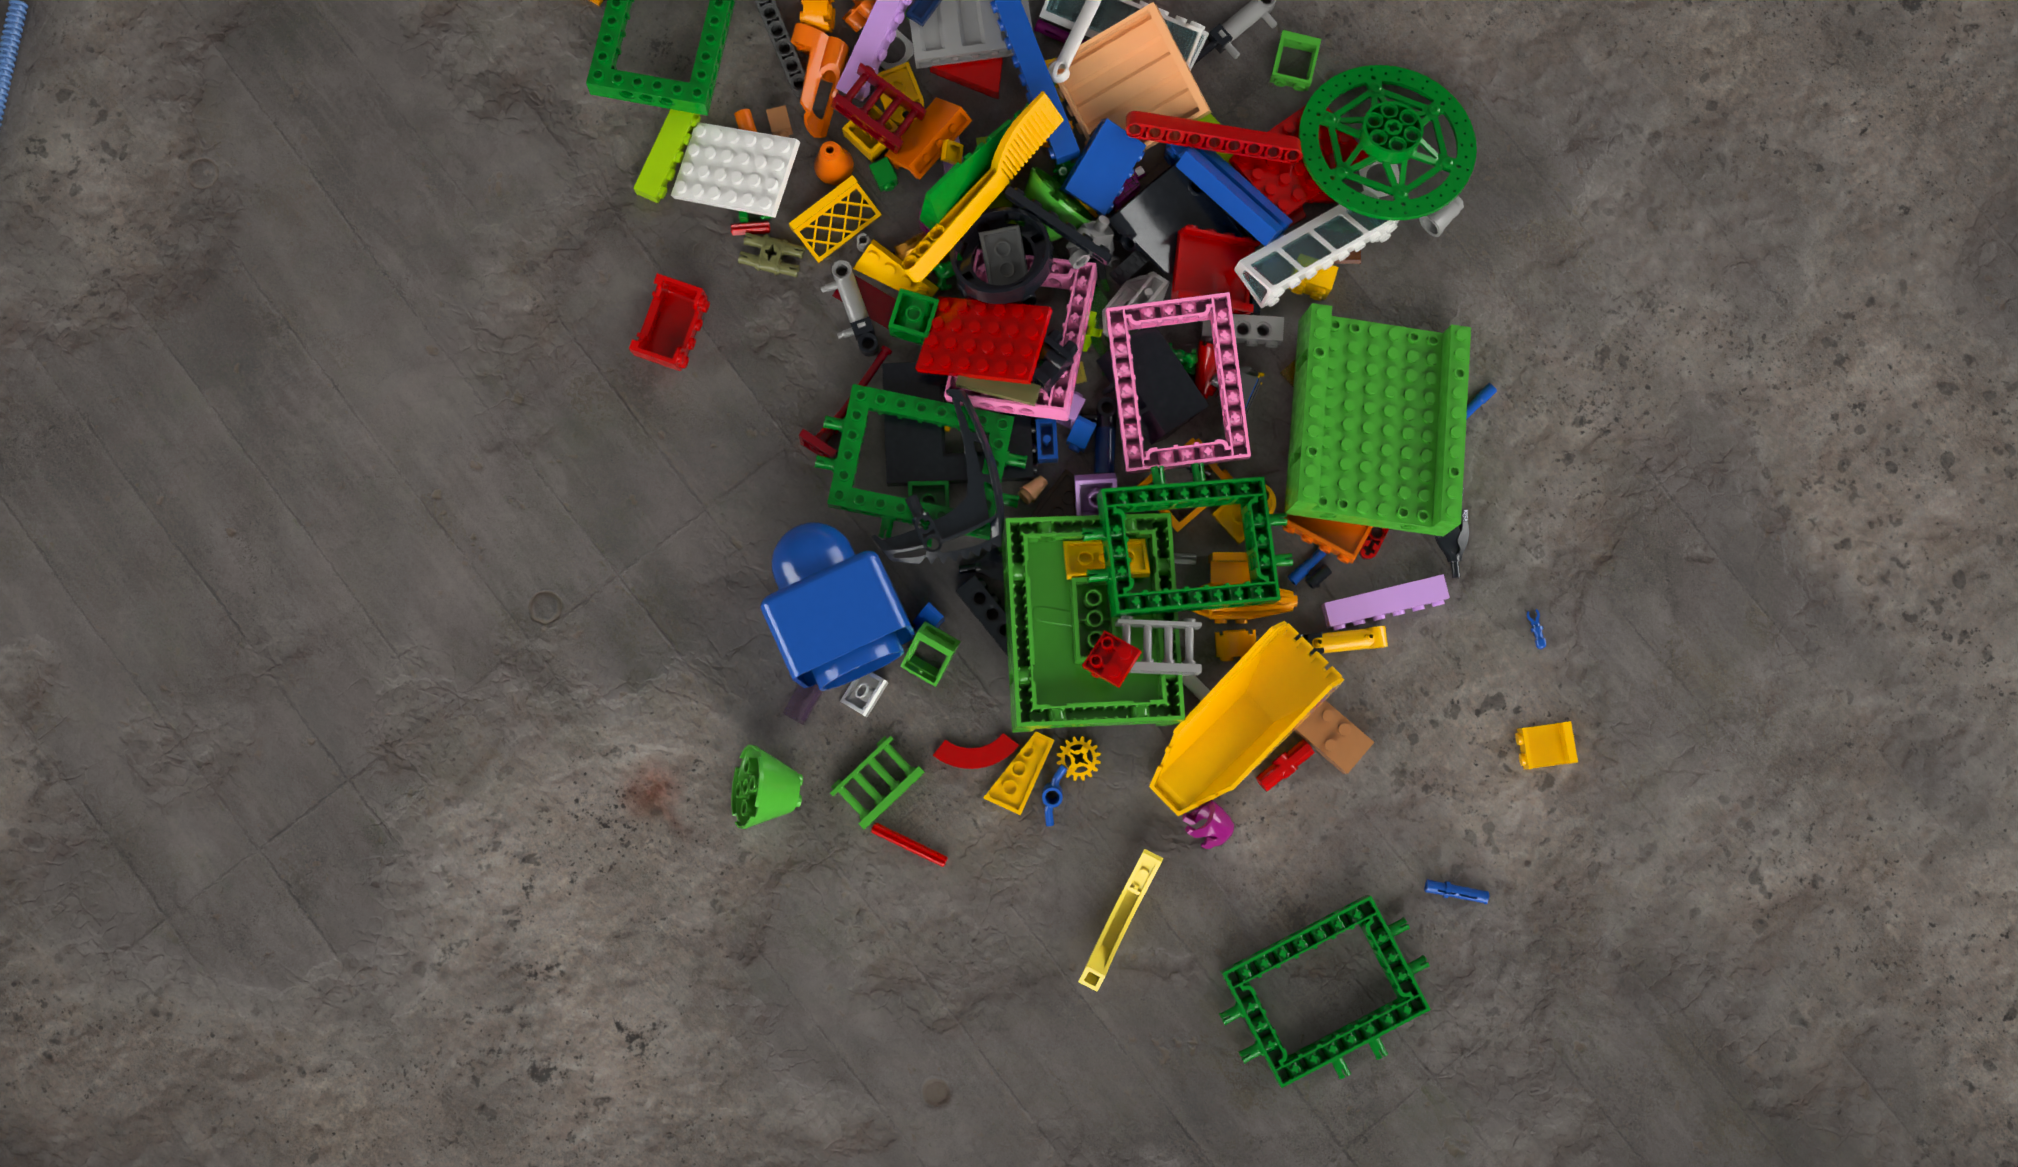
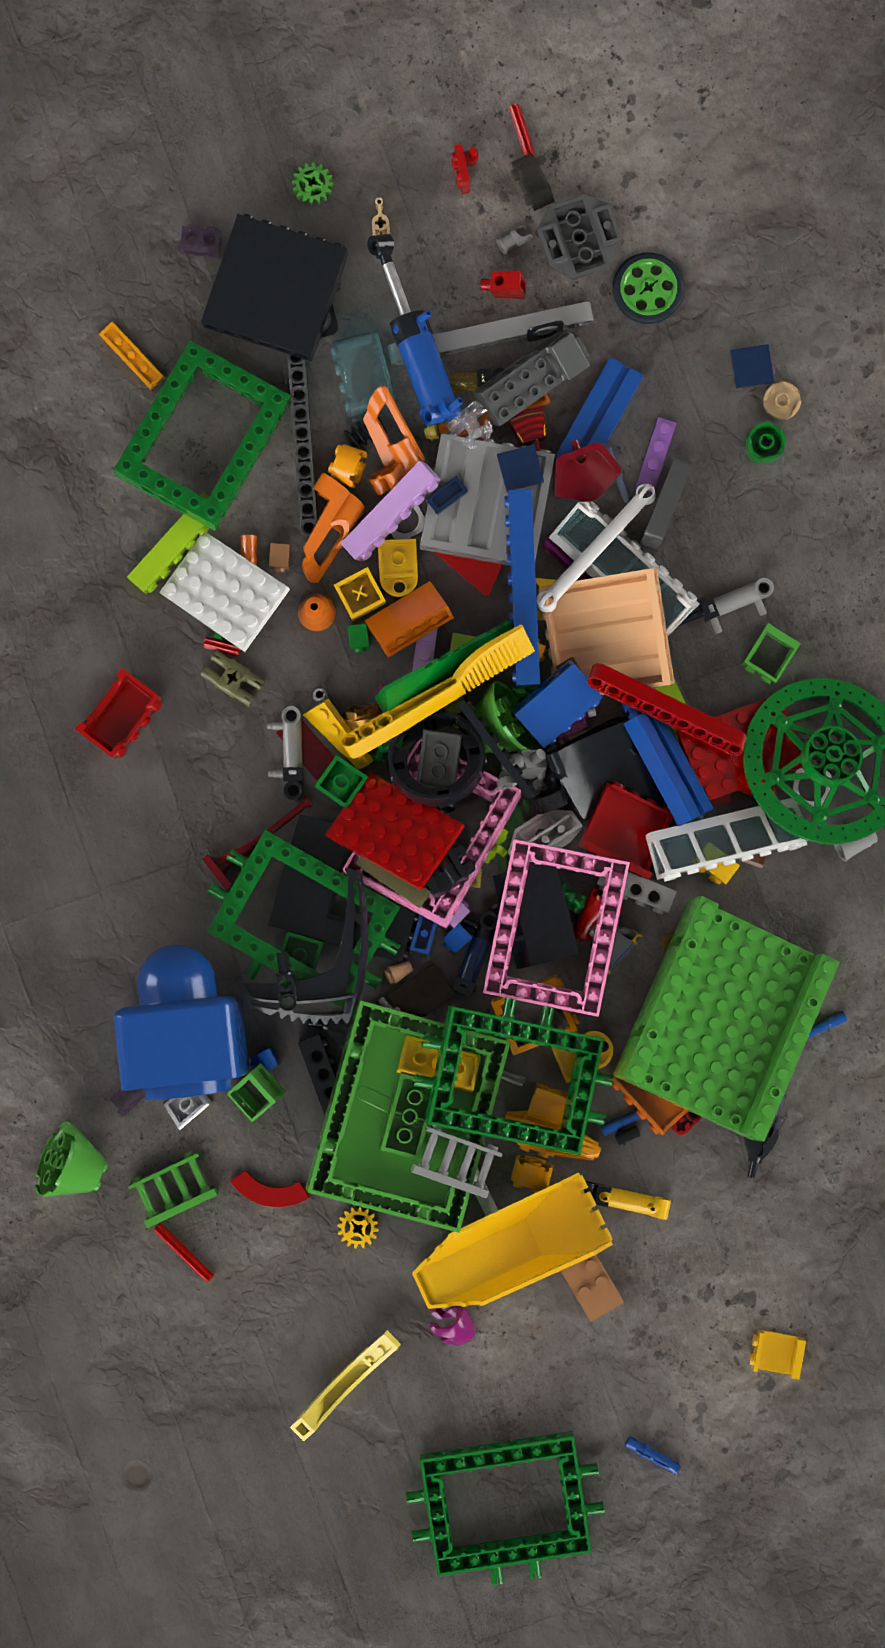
camera: 20 degrees right, 5 degrees up
(827, 203) = (296, 648): yellow fence -> none
(861, 118) = (353, 581): dark red fence -> none
(952, 152) = (425, 642): yellow tile -> none
(1019, 778) = (301, 1225): yellow wing -> none
(1053, 786) = (327, 1245): blue piece -> none
(1086, 491) = (448, 993): lavender brick -> none
(1111, 659) = (410, 1162): red plate -> none
(1284, 765) = (539, 1294): red piece -> none
(1385, 601) = (679, 1178): lavender brick -> none
(1537, 629) = (806, 1246): blue piece -> none

